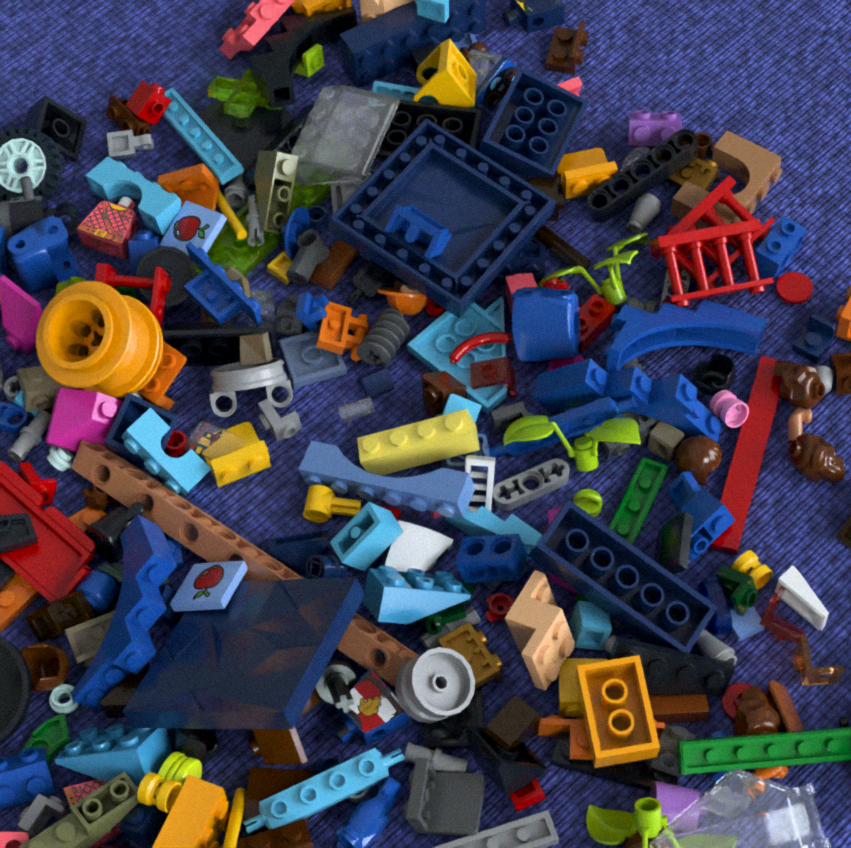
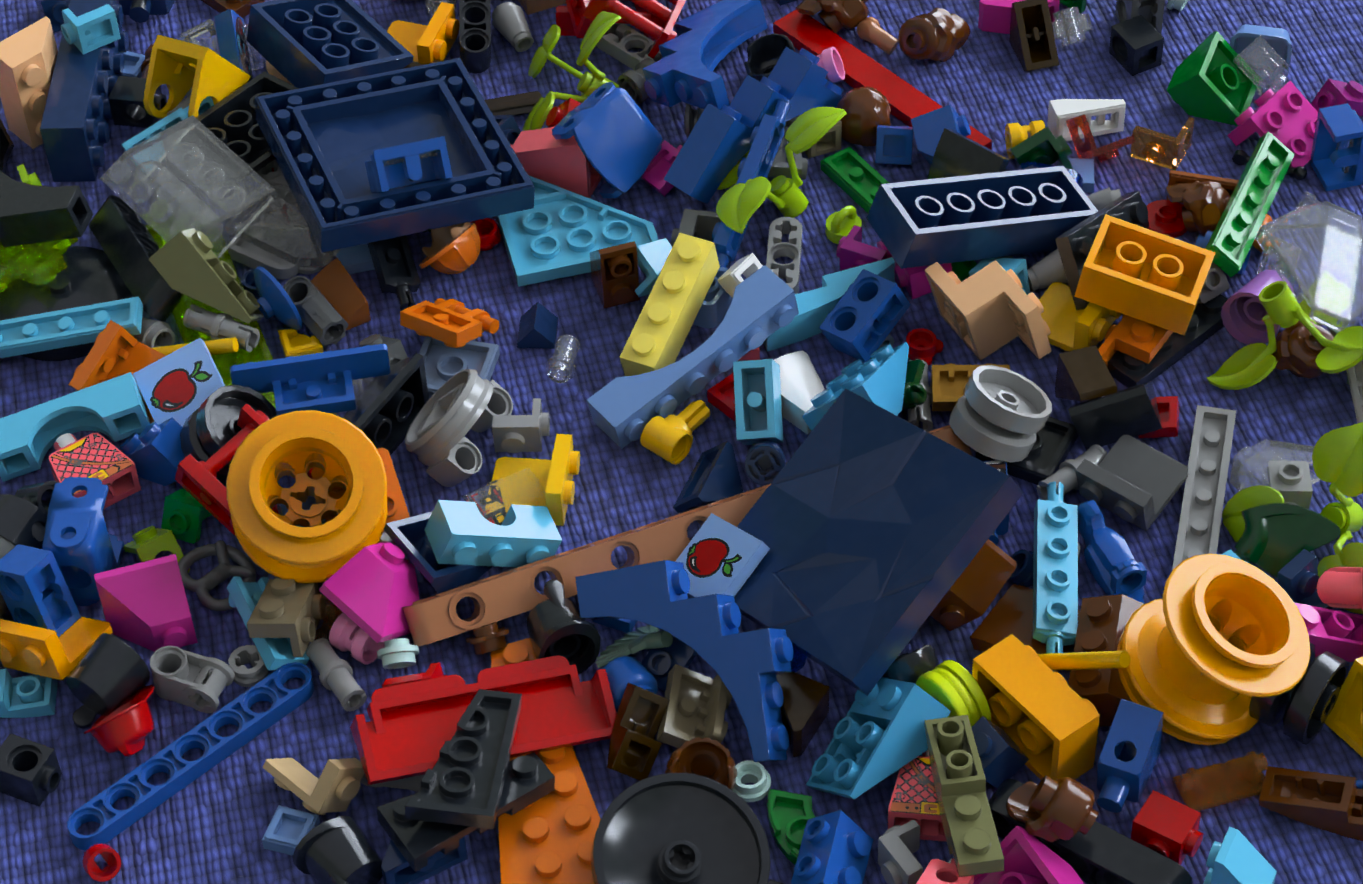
camera: 60 degrees left, 10 degrees down
(158, 791) = (978, 694): yellow wheel -> none
(255, 349) = (430, 381): dark tan slope -> none
(311, 310) = (399, 327): blue tile -> none
(384, 338) = (494, 287): dark grey piece -> none
(475, 341) = (569, 213): red piece -> none
(492, 373) = (623, 220): clear red bracket -> none

